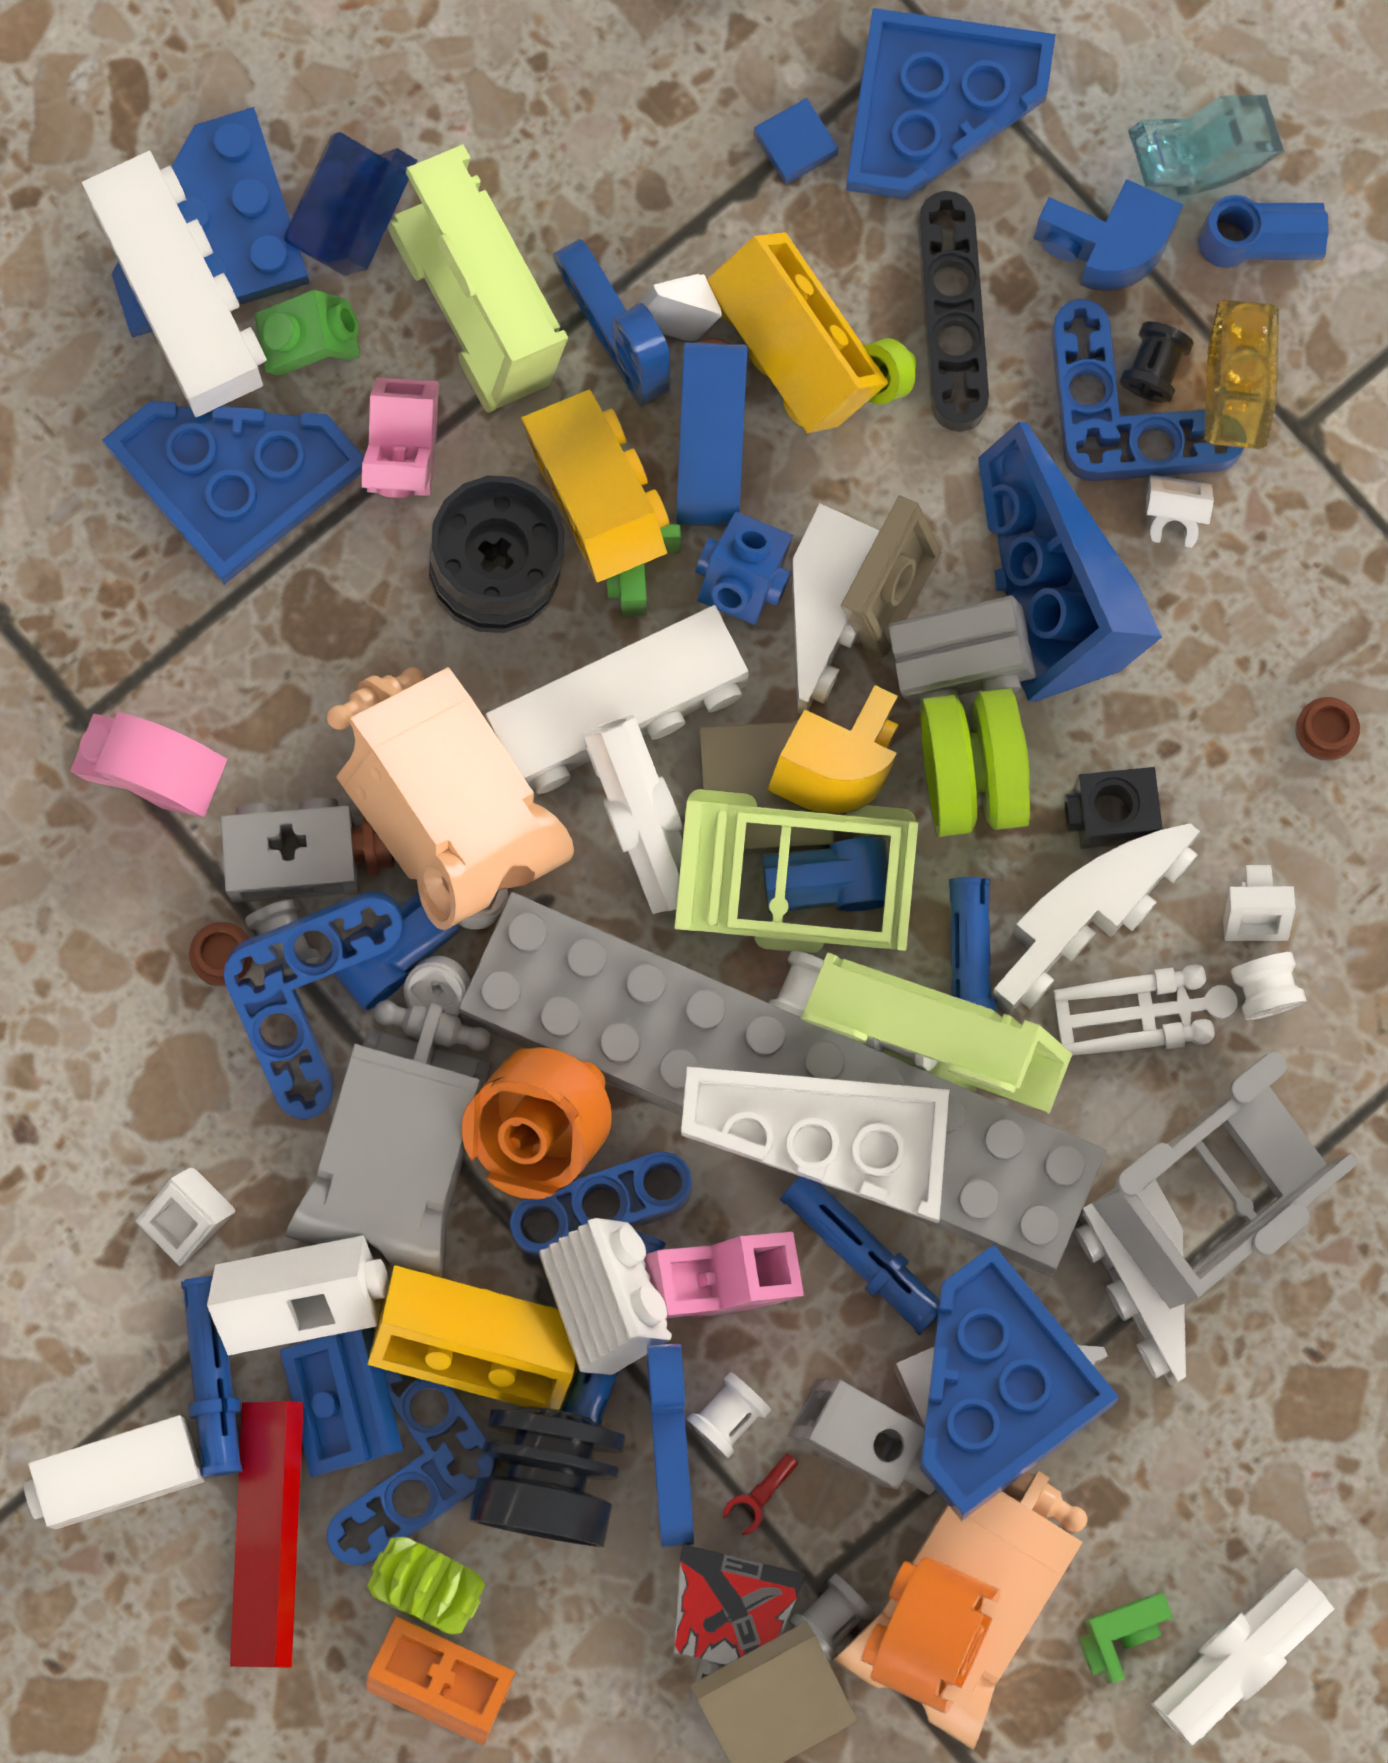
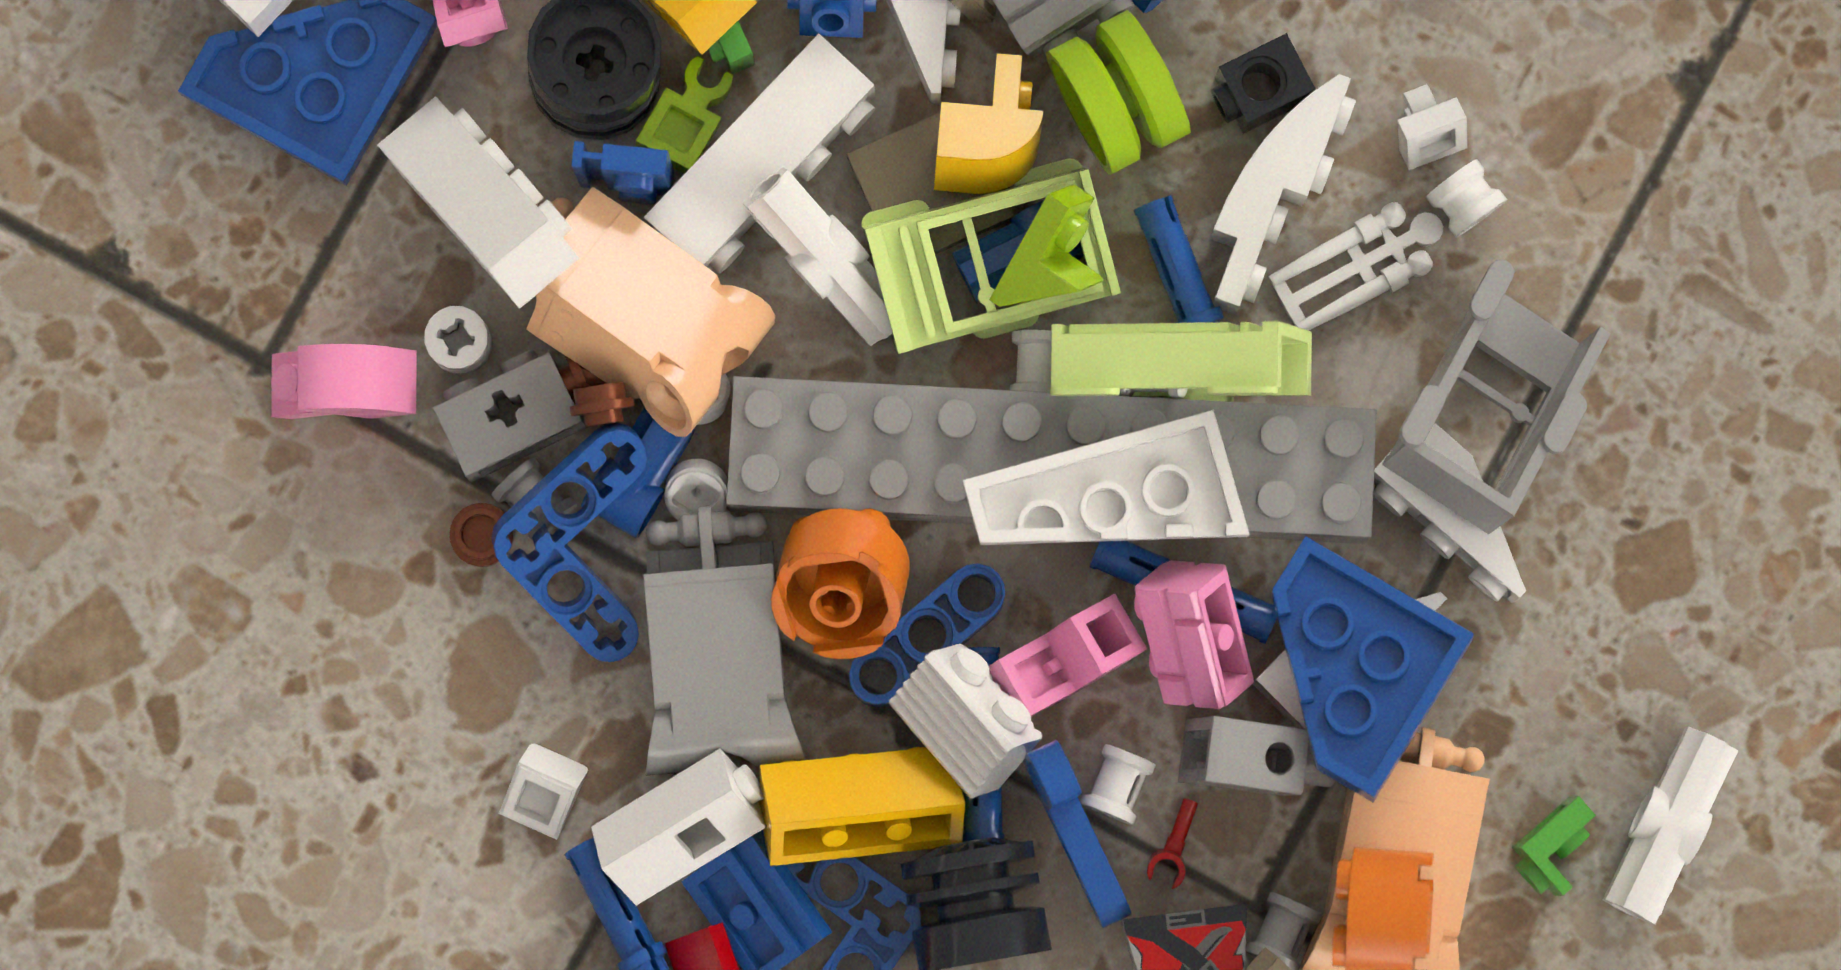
camera: 20 degrees left, 5 degrees up
(279, 774) = (466, 353): none -> white wheel
(340, 639) = (479, 201): none -> white brick
(377, 870) = (601, 403): none -> copper plate
(492, 667) = (632, 171): none -> blue plate
(559, 644) = (684, 122): none -> lime plate
(841, 890) = (1042, 260): none -> lime slope
(853, 1298) = (1193, 634): none -> bright pink brick

